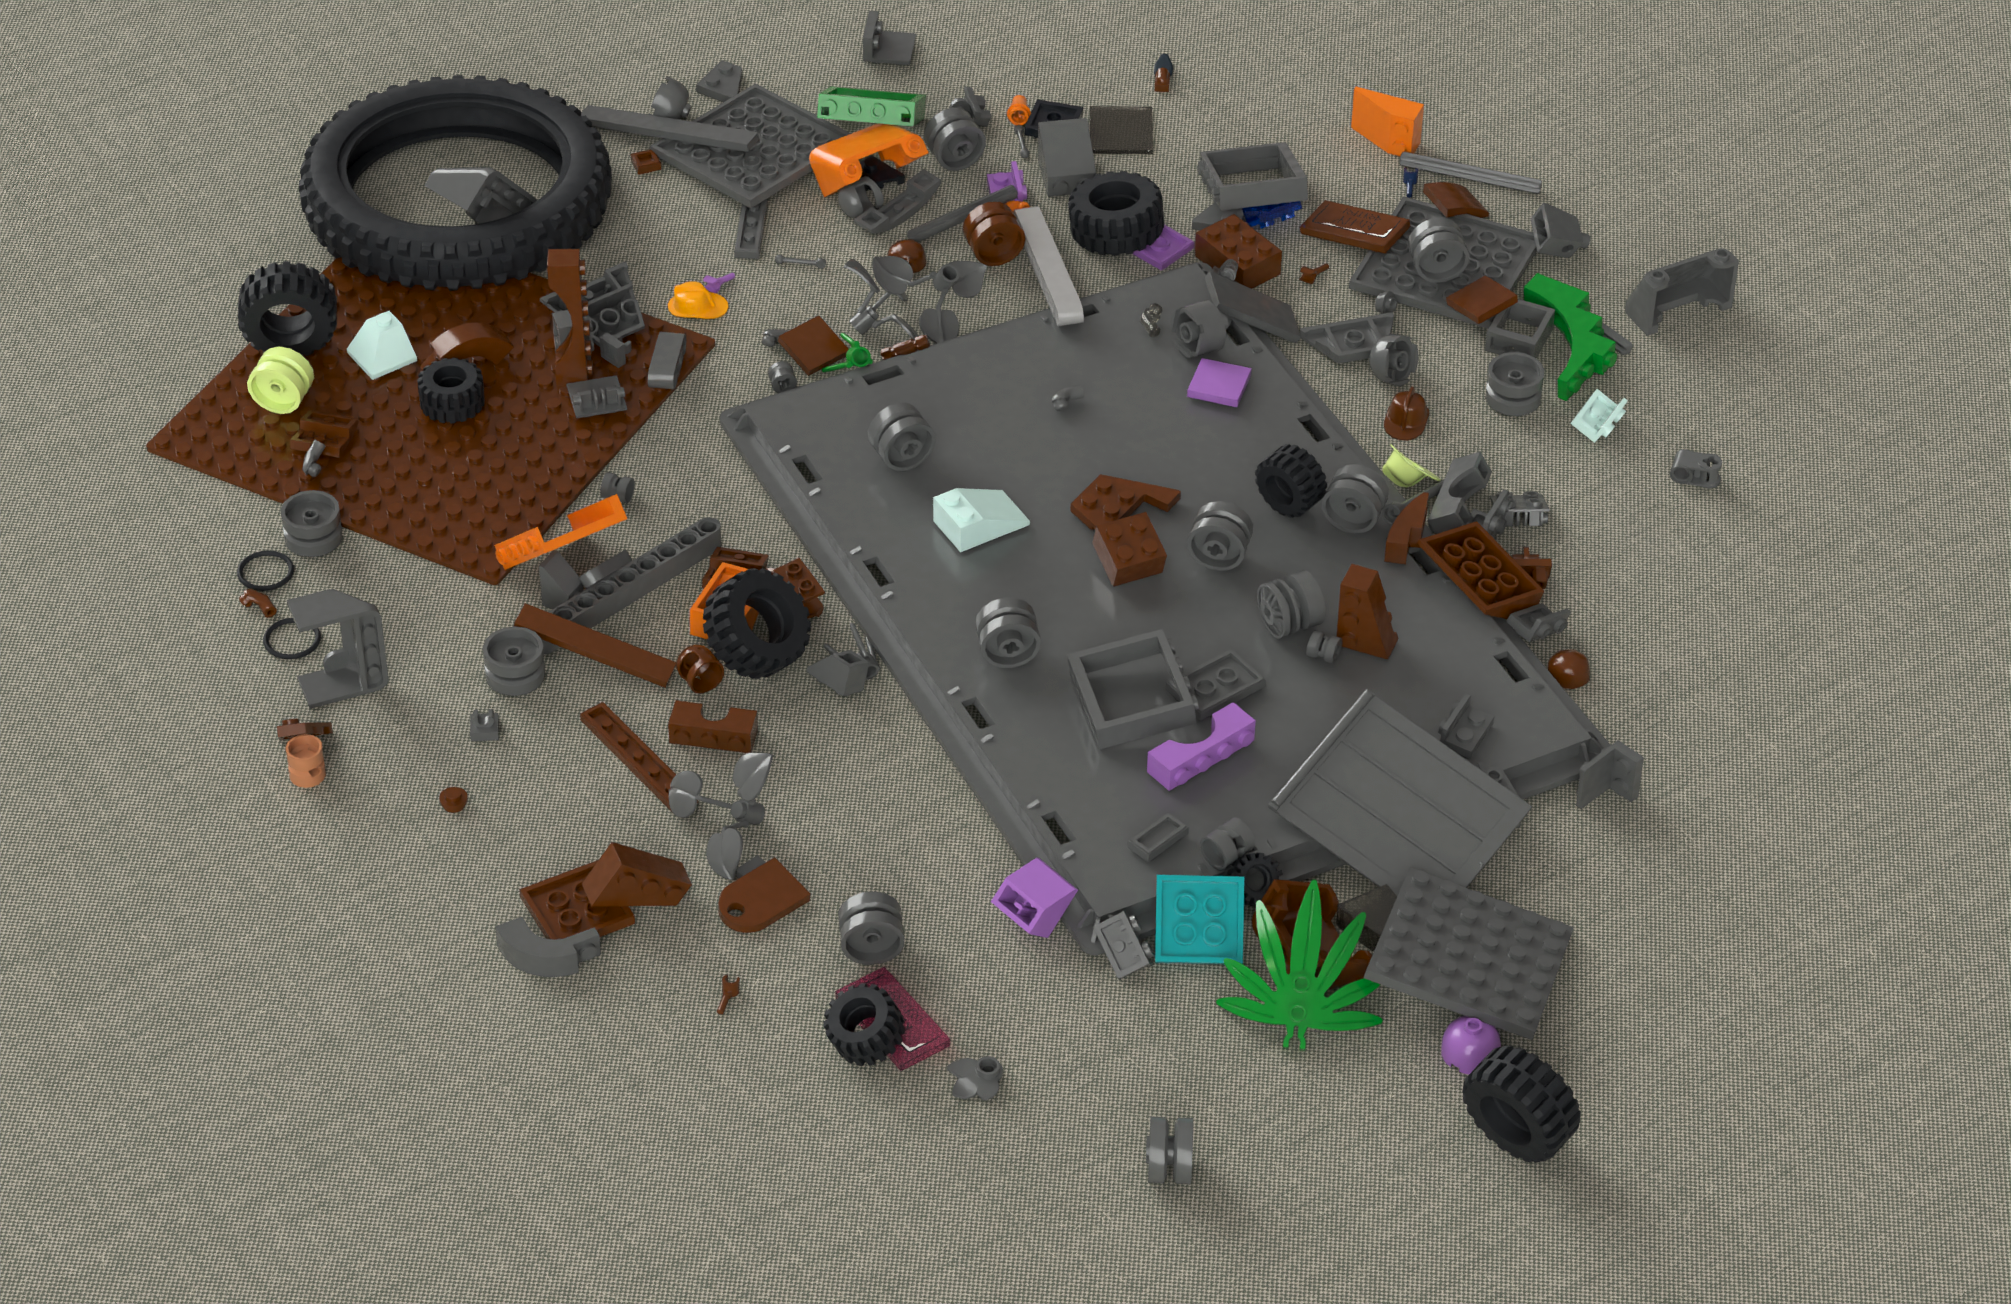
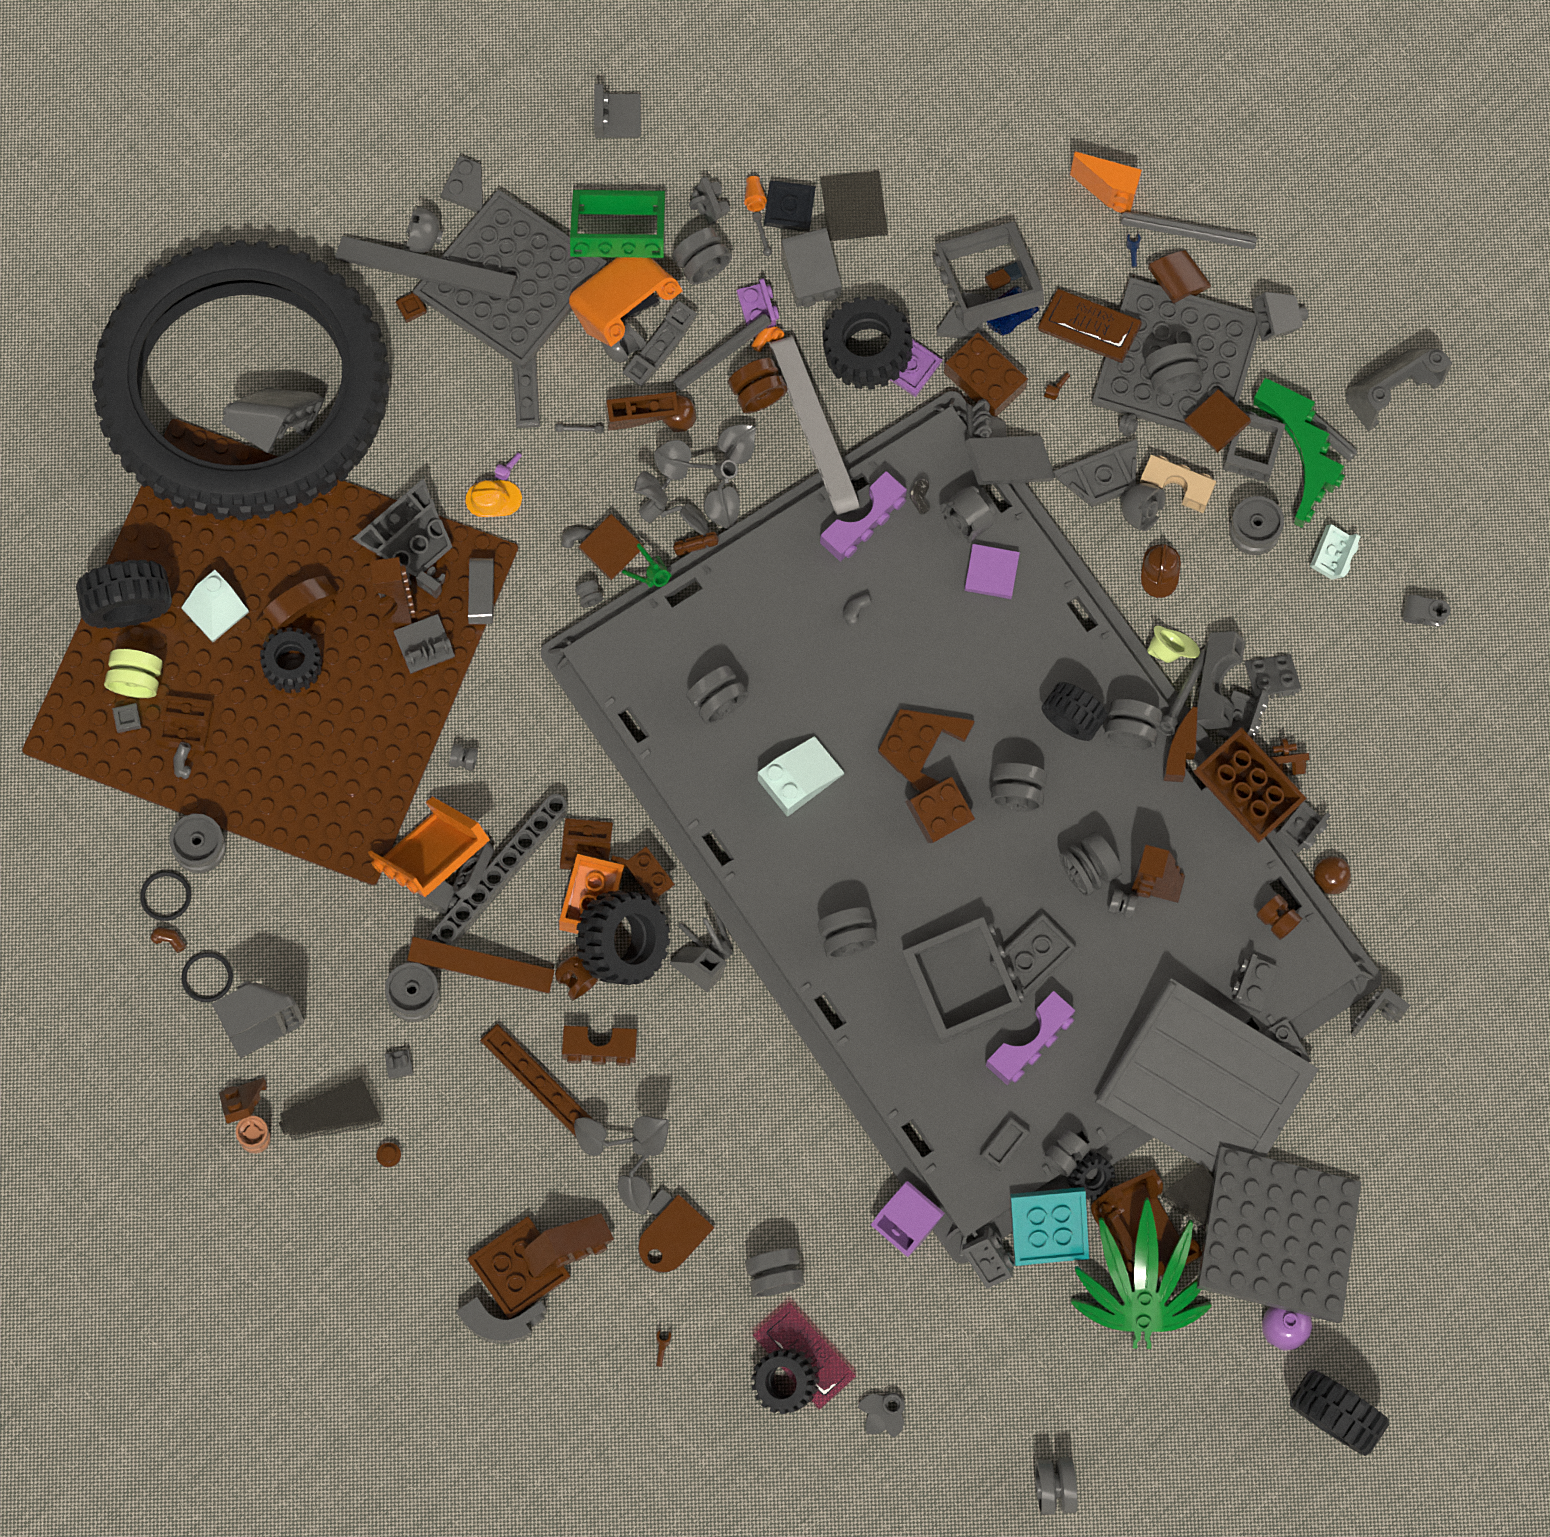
camera: 10 degrees left, 30 degrees up
(264, 425) = (126, 718): none -> dark grey tile
(398, 755) = (334, 1112): none -> clear smoke slope
(865, 243) = (640, 410): none -> reddish brown slope
(1064, 339) = (843, 536): none -> medium lavender arch
(1163, 70) = (883, 117): piece -> none
(1453, 354) = (1197, 486): none -> tan arch
(1500, 671) = (1279, 917): none -> reddish brown wheel

